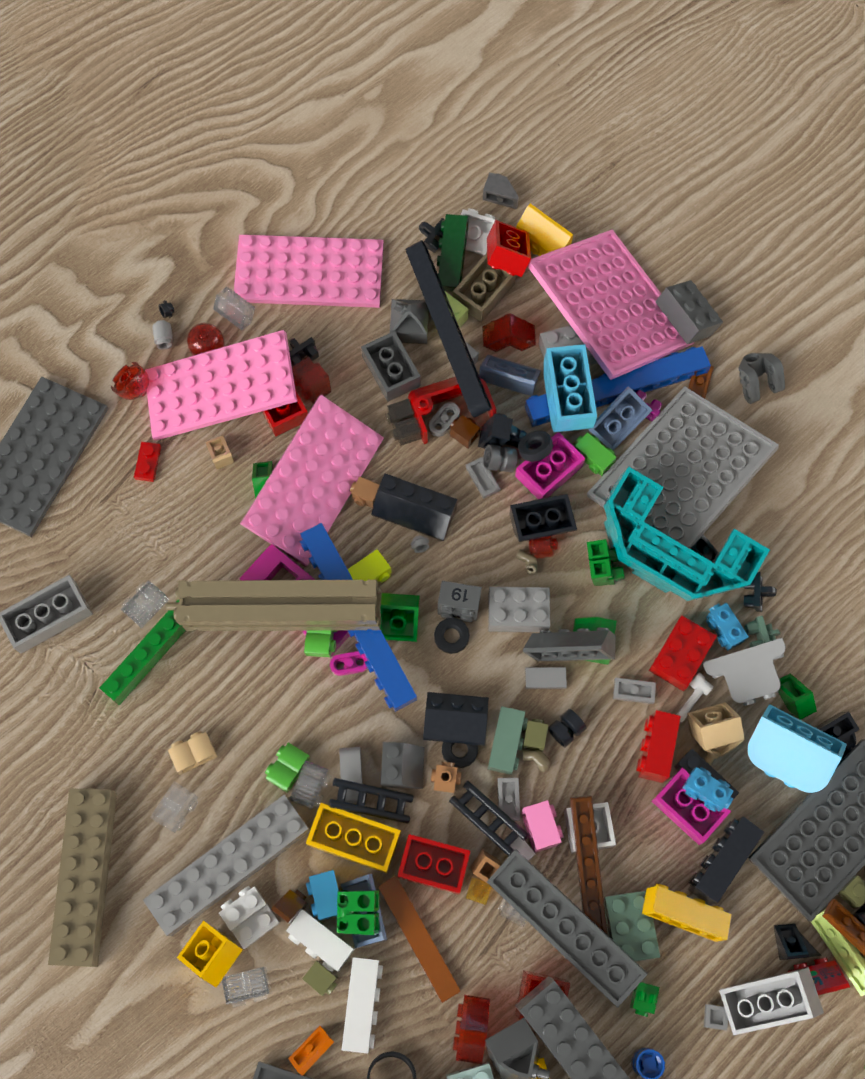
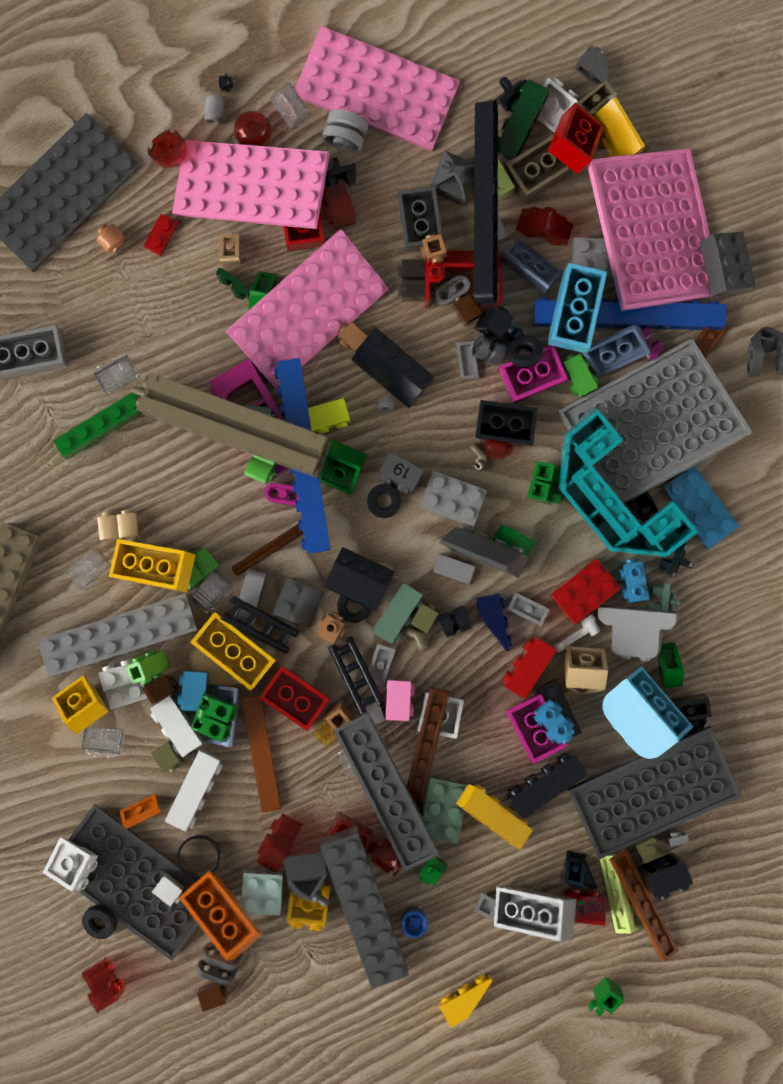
camera: 15 degrees right, 15 degrees up
(99, 479) = (110, 238): none -> nougat head
(239, 484) = (237, 287): none -> dark green slope
(240, 777) = (152, 565): none -> yellow brick
(269, 886) = (150, 666): none -> bright green brick
(293, 311) = (345, 130): none -> light grey wheel
(353, 723) = (267, 550): none -> reddish brown axle
(416, 377) = (434, 241): none -> medium nougat brick
(513, 211) = (597, 98): none -> dark tan brick
(590, 1001) = (384, 856): none -> clear red cylinder
(600, 708) = (491, 614): none -> clear blue slope
(750, 523) = (701, 506): none -> dark azure plate

